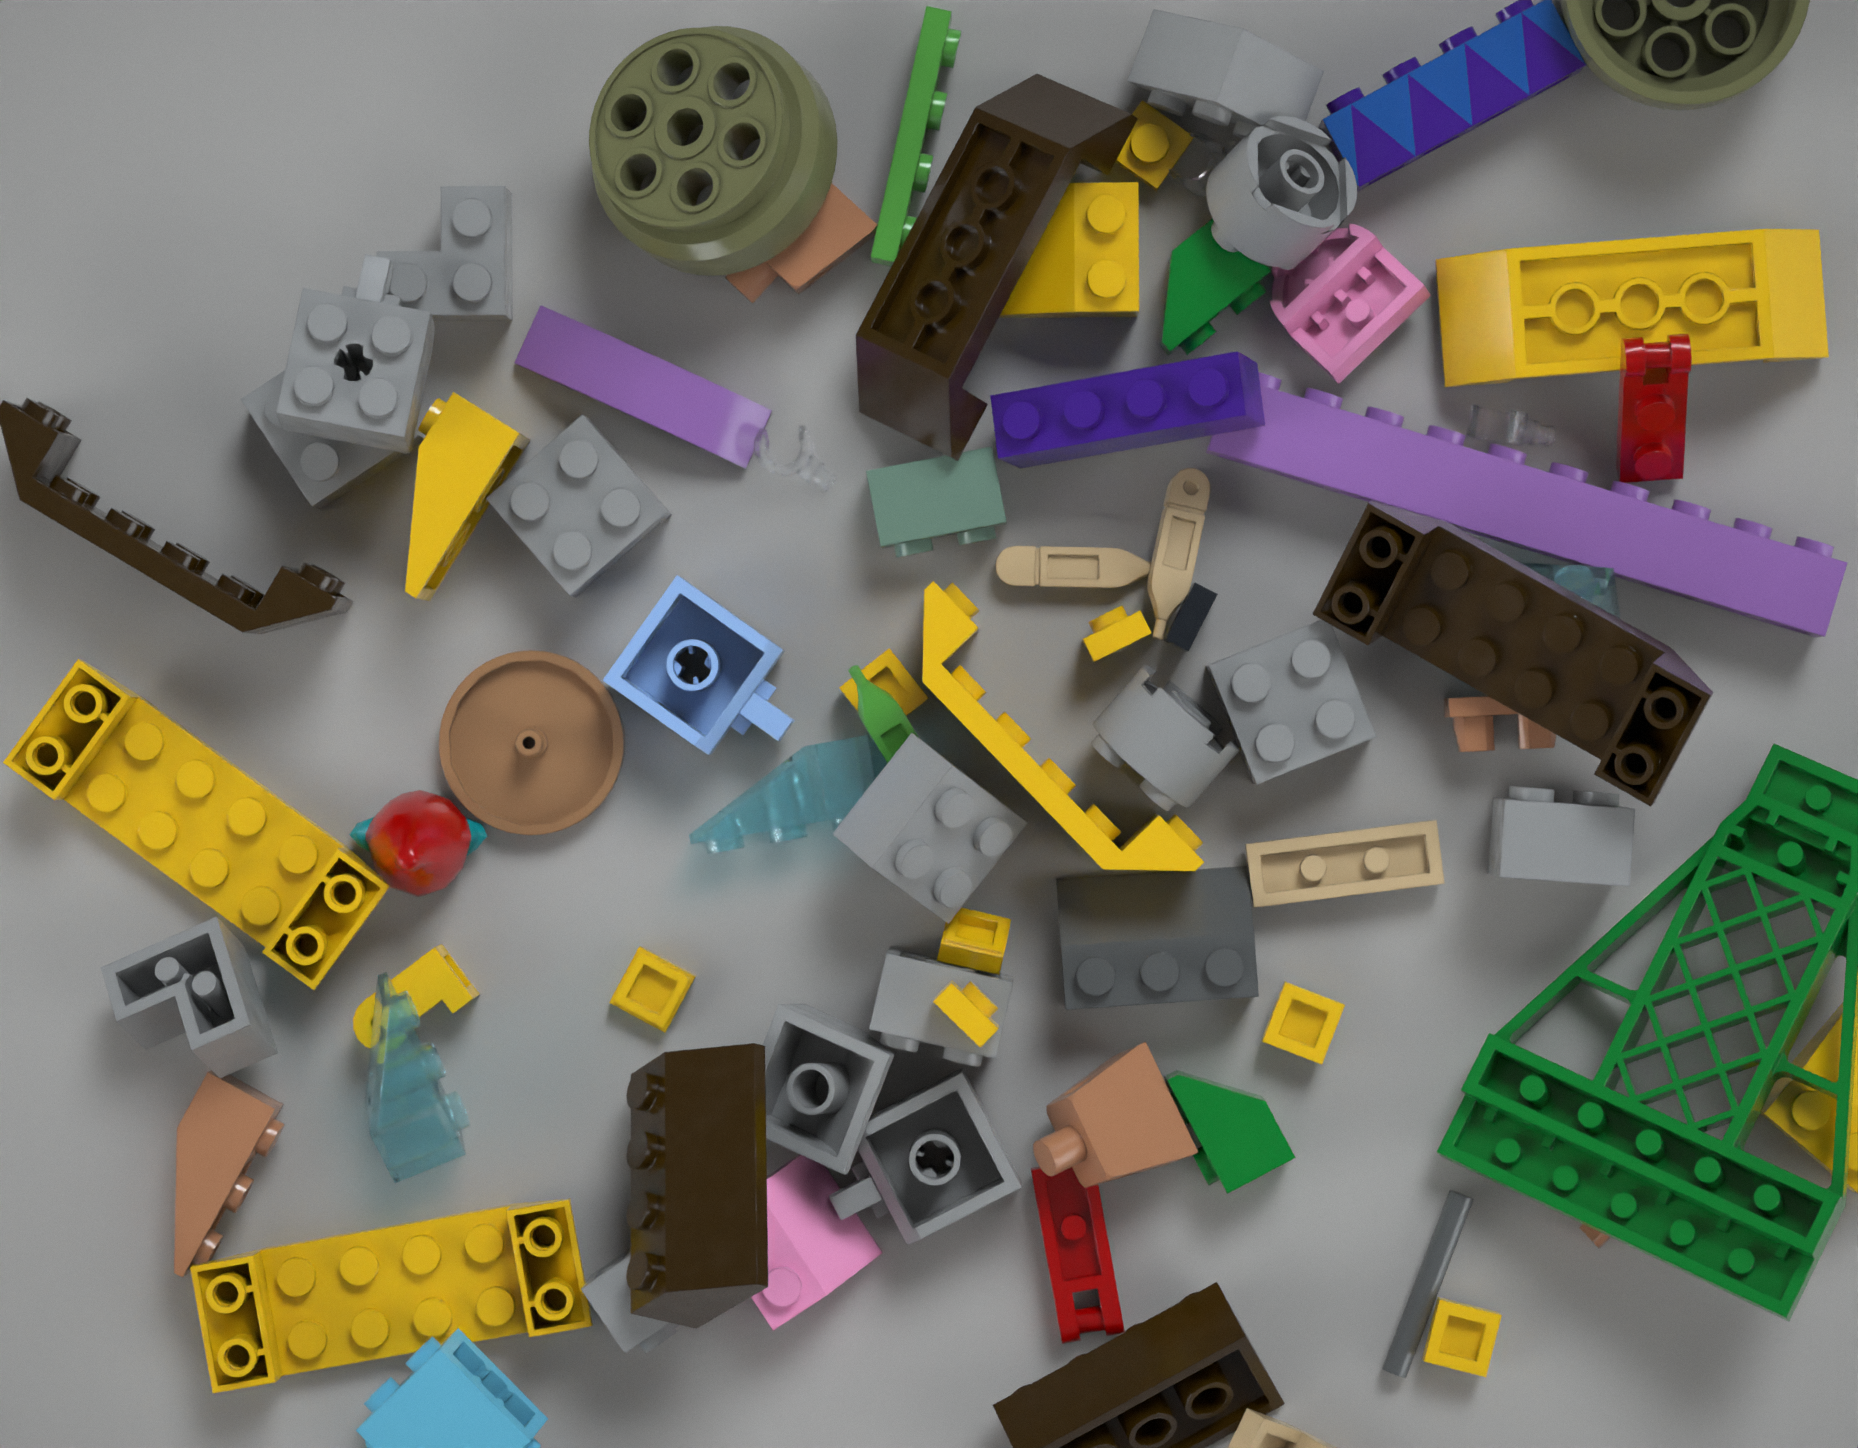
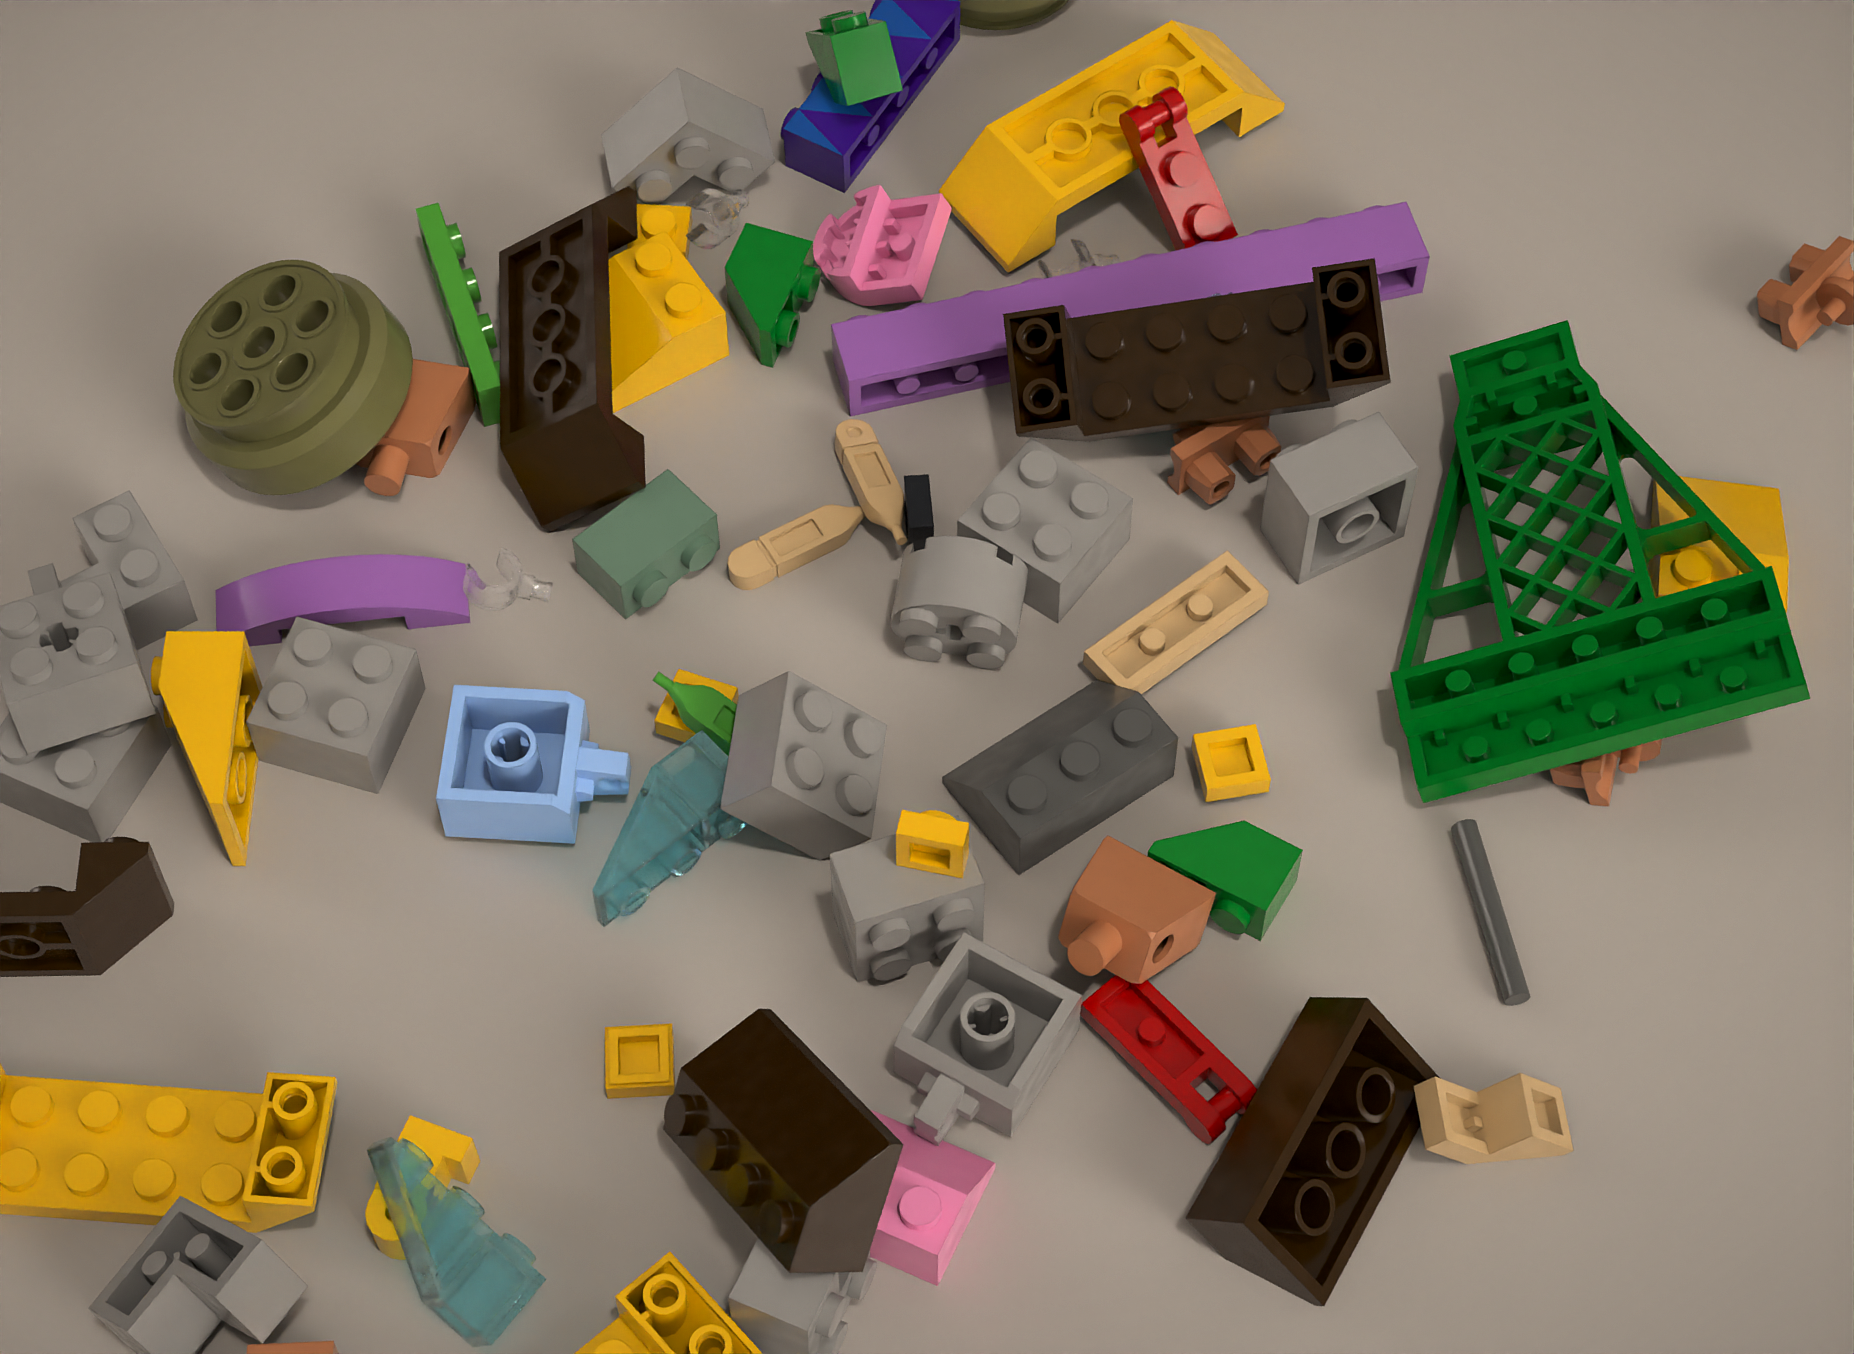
camera: 30 degrees left, 30 degrees down
(419, 841) = (350, 1042): red hat -> none
(531, 742) = (405, 922): medium nougat piece -> none
(820, 1084) = (848, 1013): light grey slope -> none
(1114, 631) = (865, 562): yellow plate -> none
(1128, 410) = (763, 381): dark purple brick -> none
(1152, 847) = (910, 691): yellow slope -> none
(1279, 193) = (783, 181): light grey brick -> none
(1429, 94) = (855, 57): none -> green slope
(1461, 1336) = (1551, 929): yellow plate -> none

